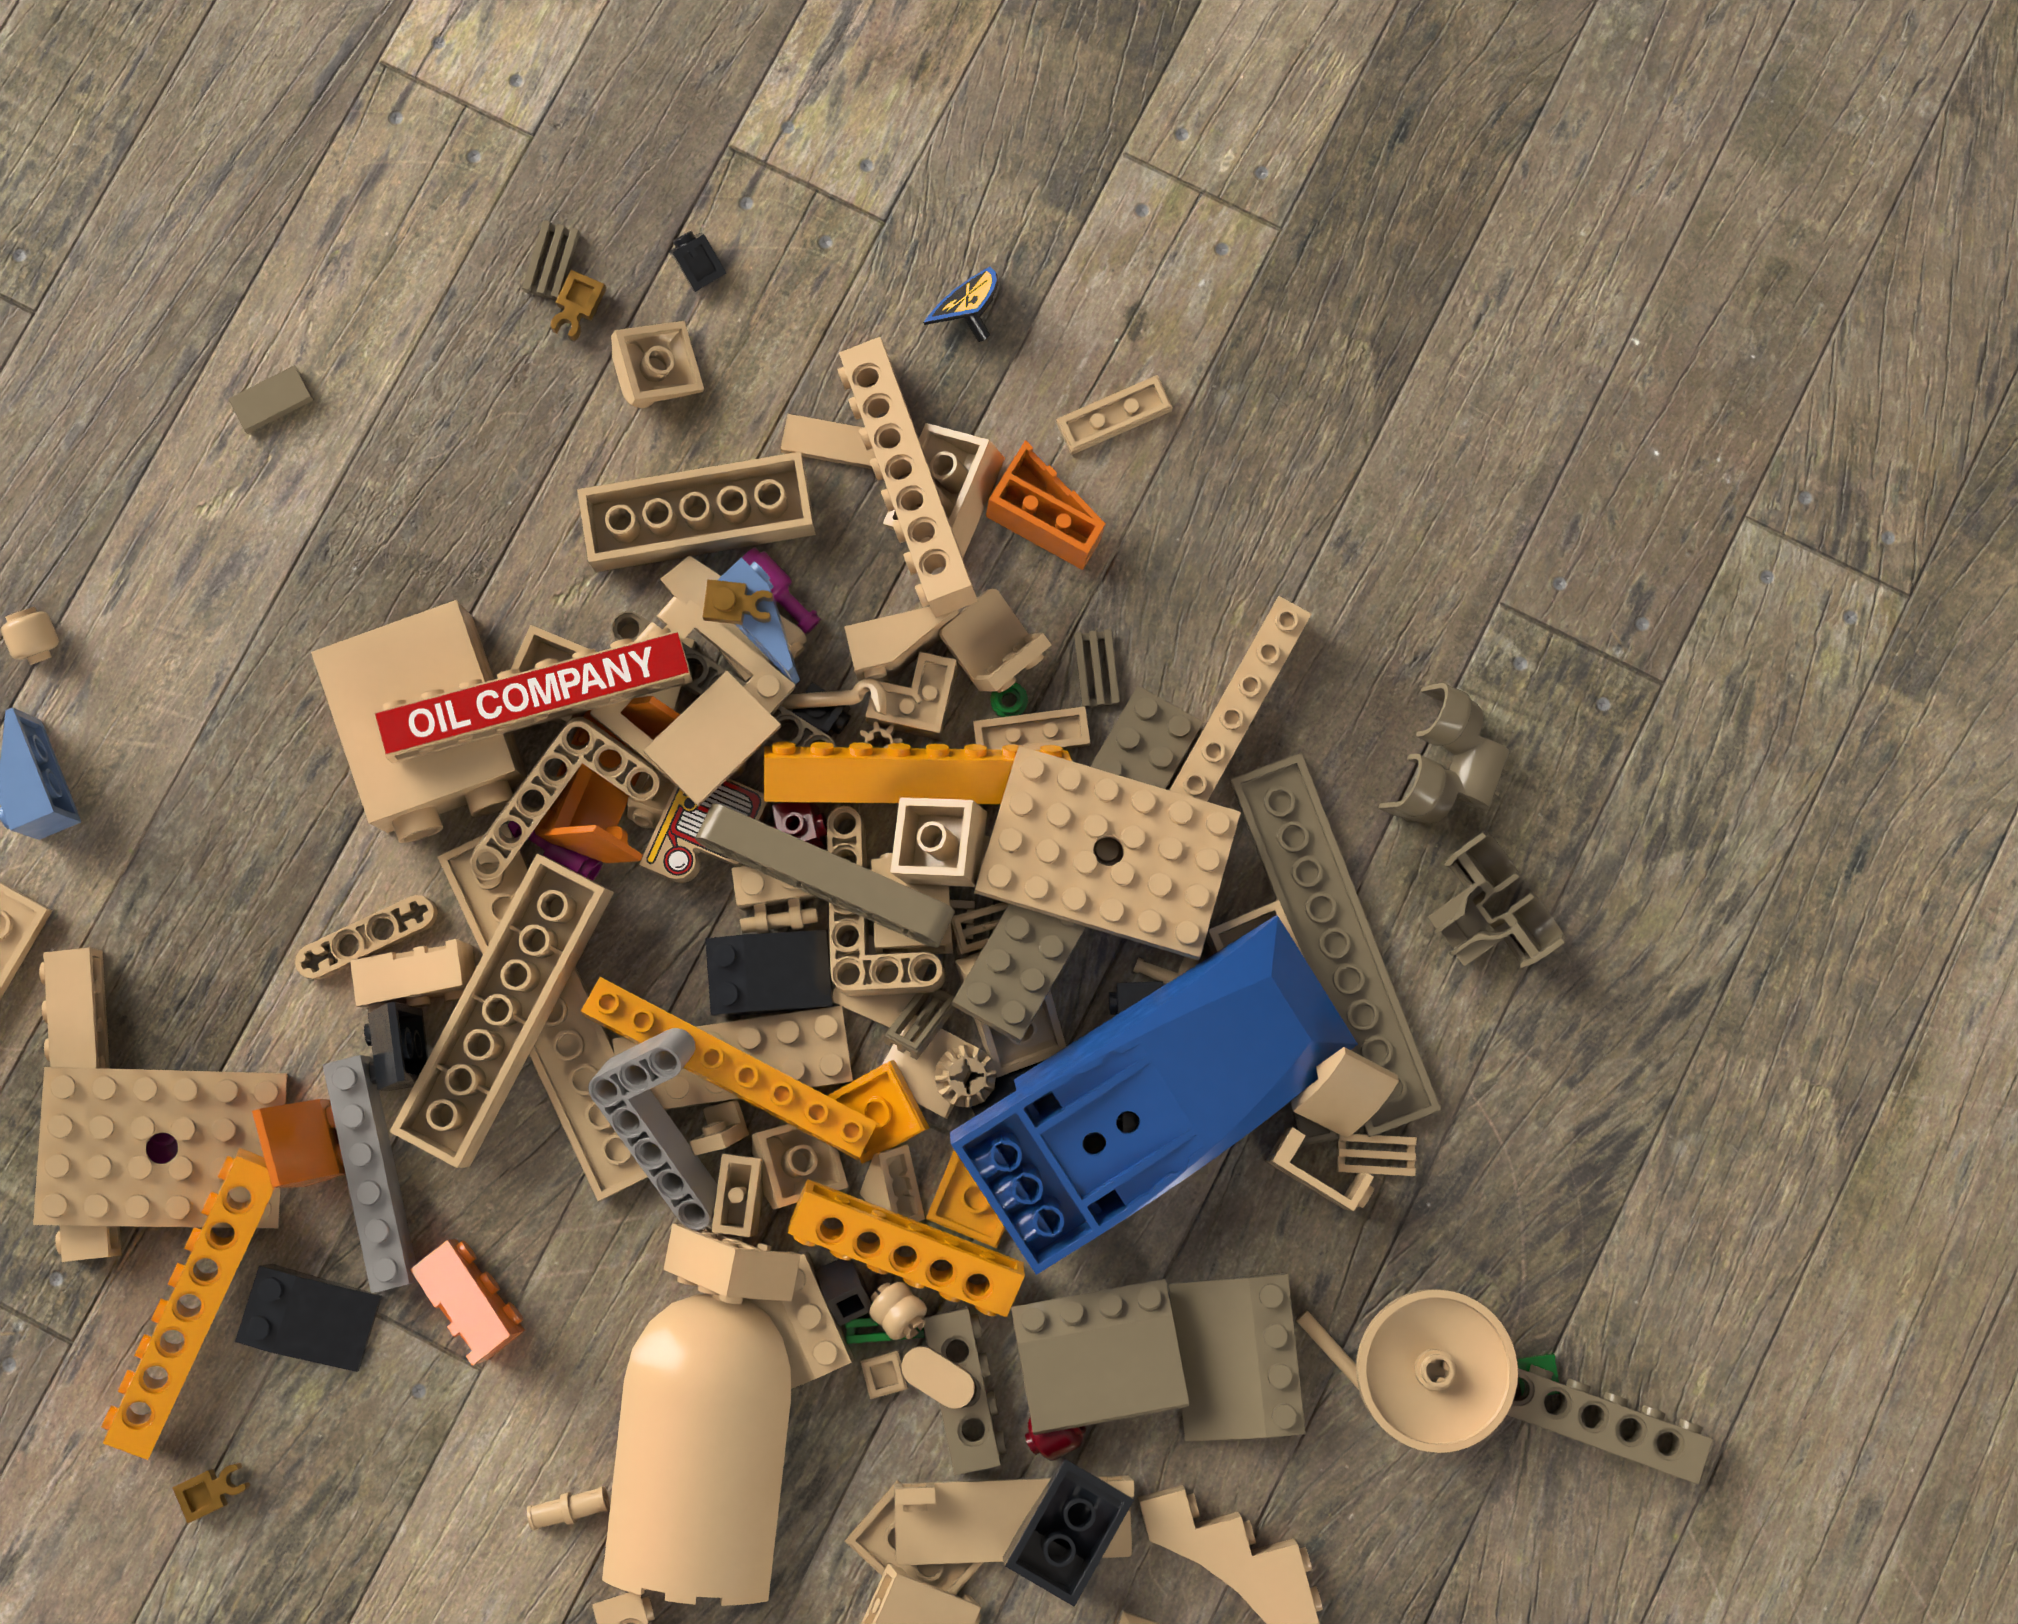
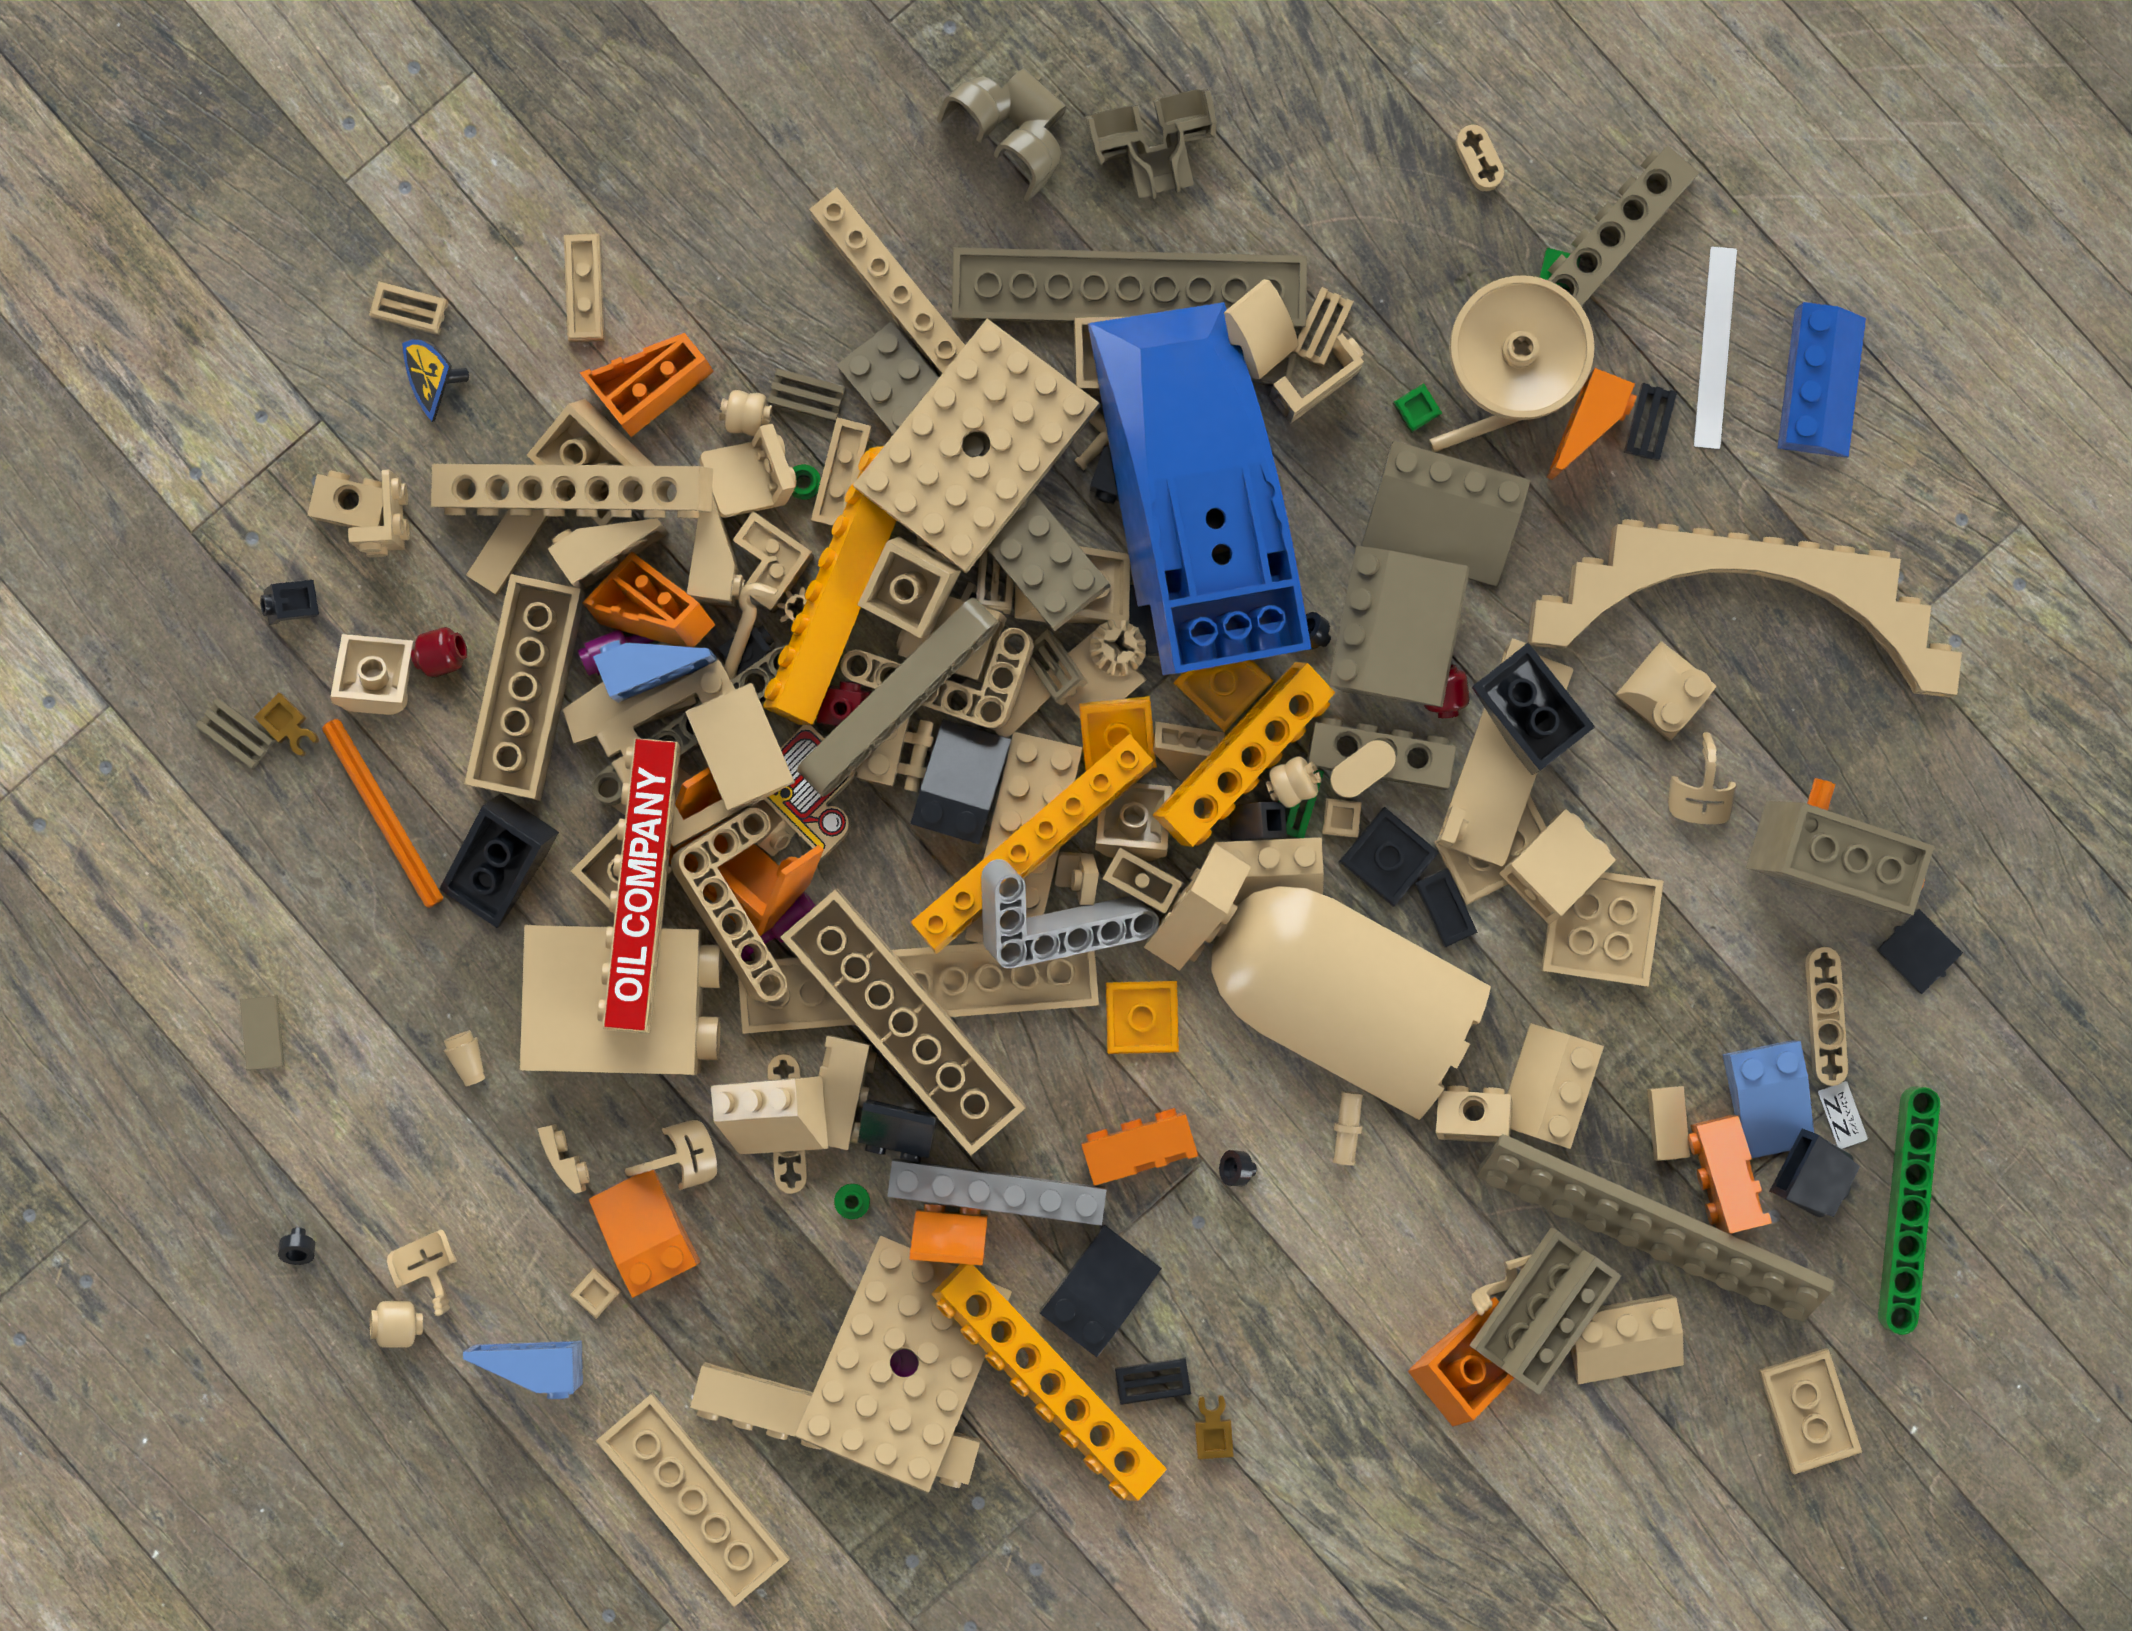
camera: 75 degrees left, 5 degrees up
(72, 513) = (296, 1247): none -> black tile
(82, 621) = (405, 1256): none -> tan helmet
(131, 816) = (595, 1293): none -> tan tile
(205, 840) = (643, 1232): none -> orange slope
(241, 741) = (570, 1169): none -> tan slope
(253, 1402) = (1154, 1395): none -> black tile
(316, 599) = (465, 1057): none -> tan cone
(316, 856) = (699, 1139): none -> tan helmet
(322, 1036) = (852, 1189): none -> green plate
(364, 916) = (771, 1115): none -> tan slope
(484, 1409) = (1236, 1168): none -> black tile
(522, 553) = (498, 859): none -> black slope
(526, 428) = (382, 813): none -> orange axle
(604, 1250) = (1142, 1017): none -> light orange tile
(702, 418) = (439, 652): none -> dark red head
(729, 602) = (630, 681): pearl gold plate -> none
(807, 257) = (329, 496): none -> tan brick
(808, 324) = (380, 539): none -> tan bracket
(822, 595) = (648, 605): none -> orange wedge
(834, 1520) = (1446, 907): none -> black tile
(852, 522) = (597, 550): none -> tan slope
(863, 1439) = (1388, 856): none -> black tile
(1029, 288) = (437, 316): none -> tan tile
(1053, 615) = (745, 412): none -> tan piece
(1064, 1272) = (1318, 630): none -> black tile
(1334, 1285) = (1417, 408): none -> green tile
(1402, 1473) = (1597, 408): none -> orange slope
(1419, 1551) = (1657, 393): none -> black tile
(1525, 1573) = (1715, 347): none -> white sticker
(1623, 1253) = (1472, 162): none -> tan beam

